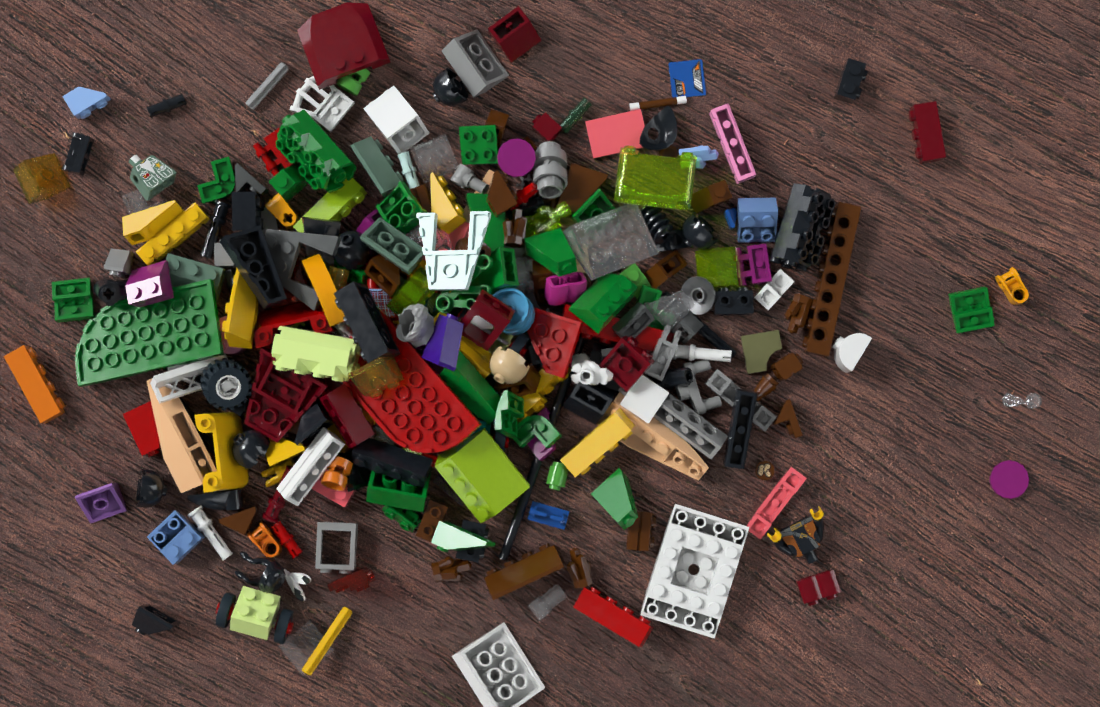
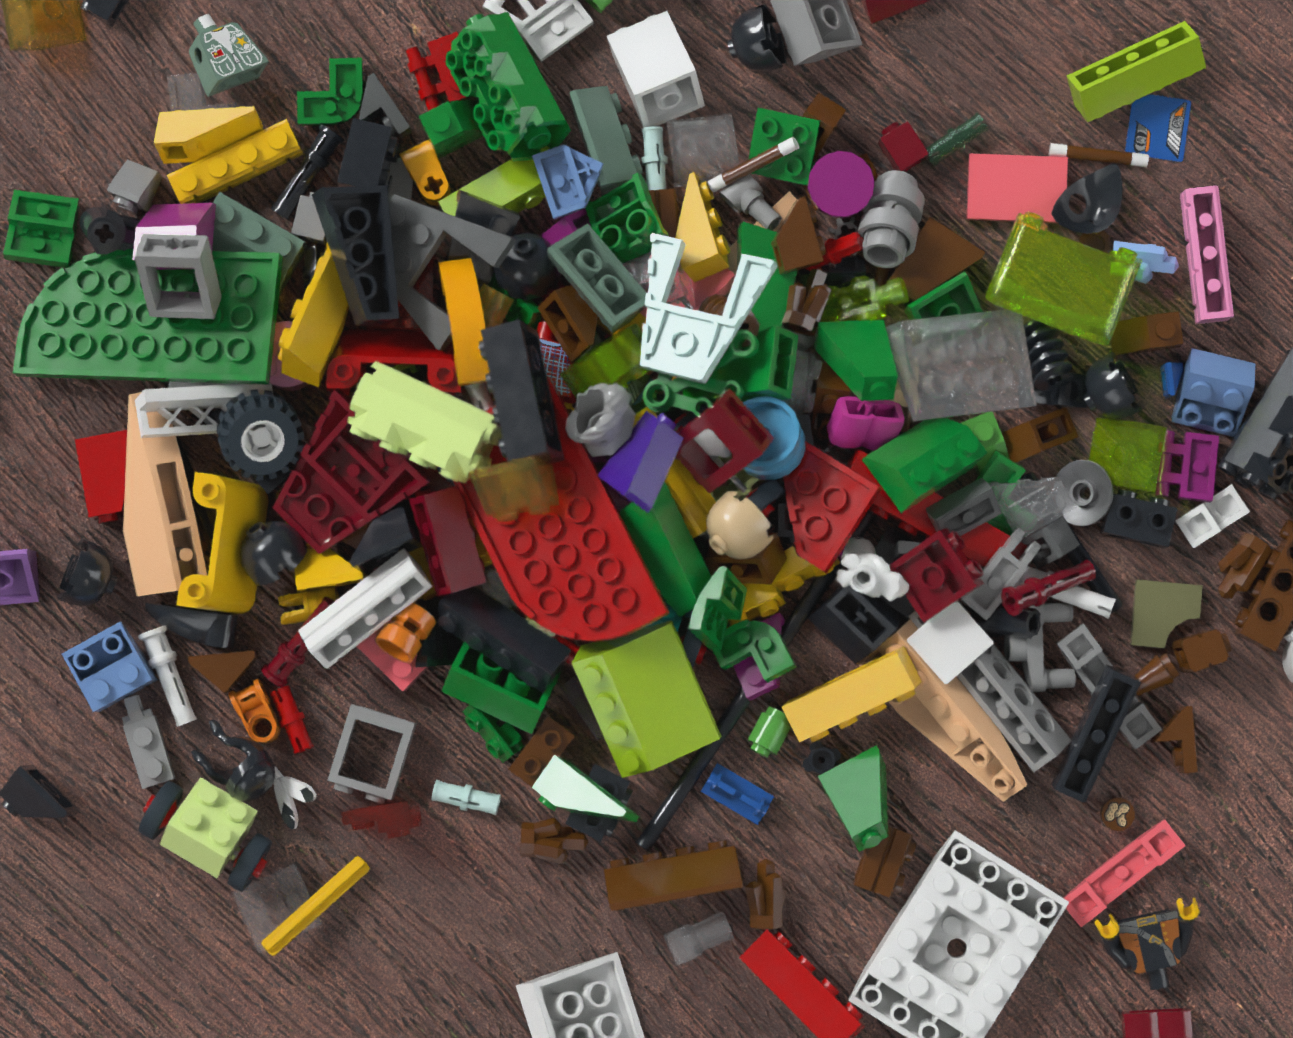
camera: 15 degrees right, 0 degrees up
(158, 292) = (191, 252): none -> light grey window
(208, 575) = (146, 744): none -> light grey hinge
(361, 195) = (566, 179): none -> medium blue slope
(396, 557) = (466, 797): none -> light aqua pin
(464, 159) = (753, 164): none -> reddish brown bar
(587, 479) = (817, 751): none -> black plate
(666, 51) = (1136, 71): none -> lime brick
(686, 357) = (1078, 573): none -> dark red pin

